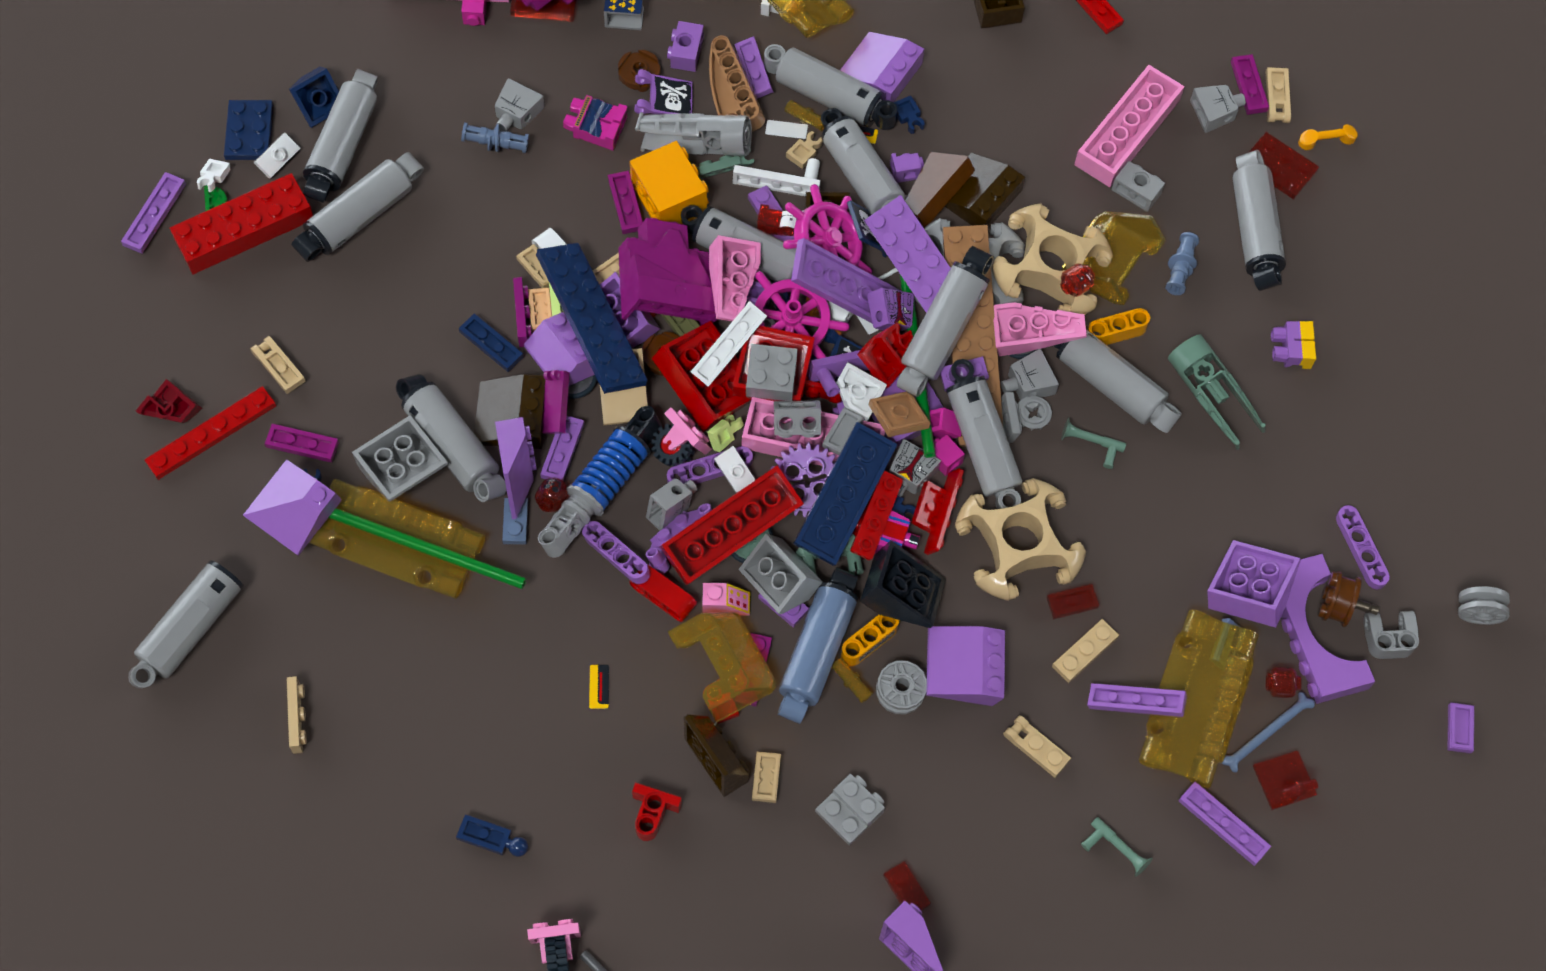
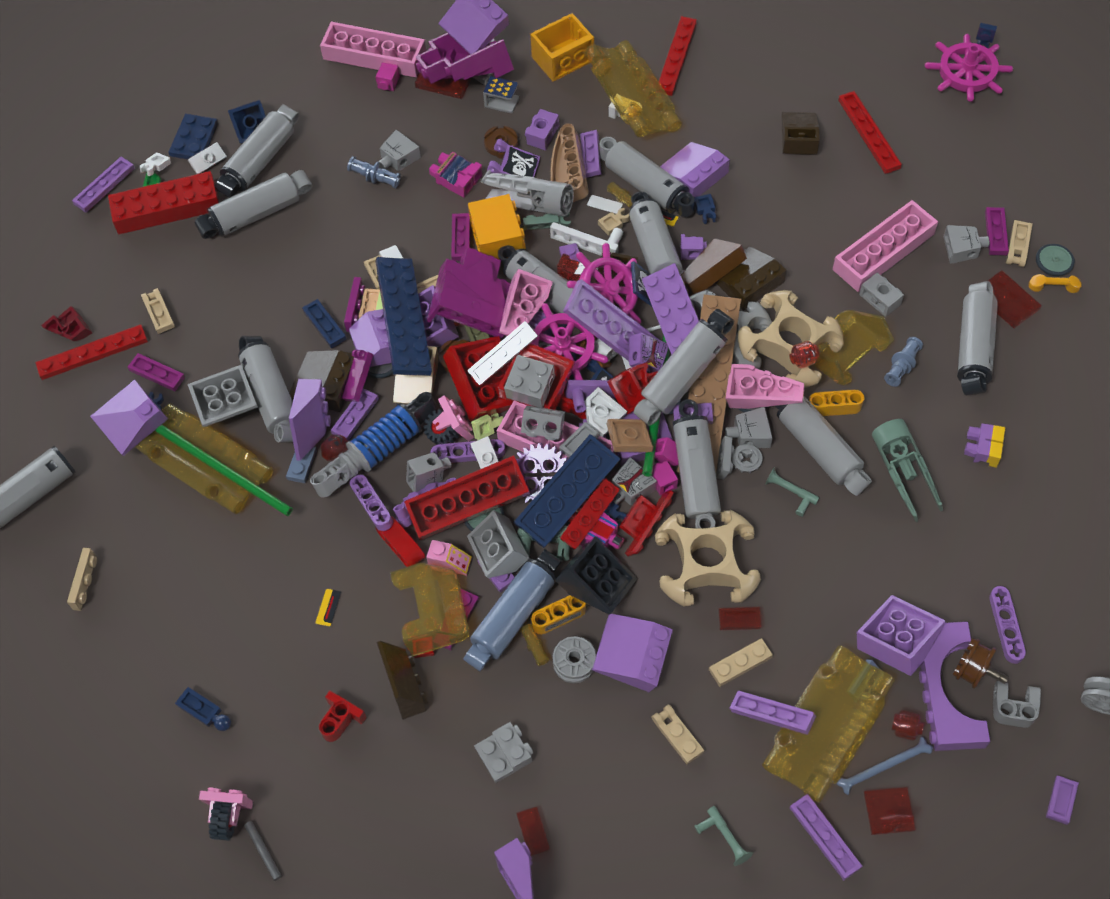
camera: 20 degrees right, 5 degrees down
(766, 777) = (440, 710): tan plate -> none
(1322, 108) = (1055, 259): none -> sand green wheel

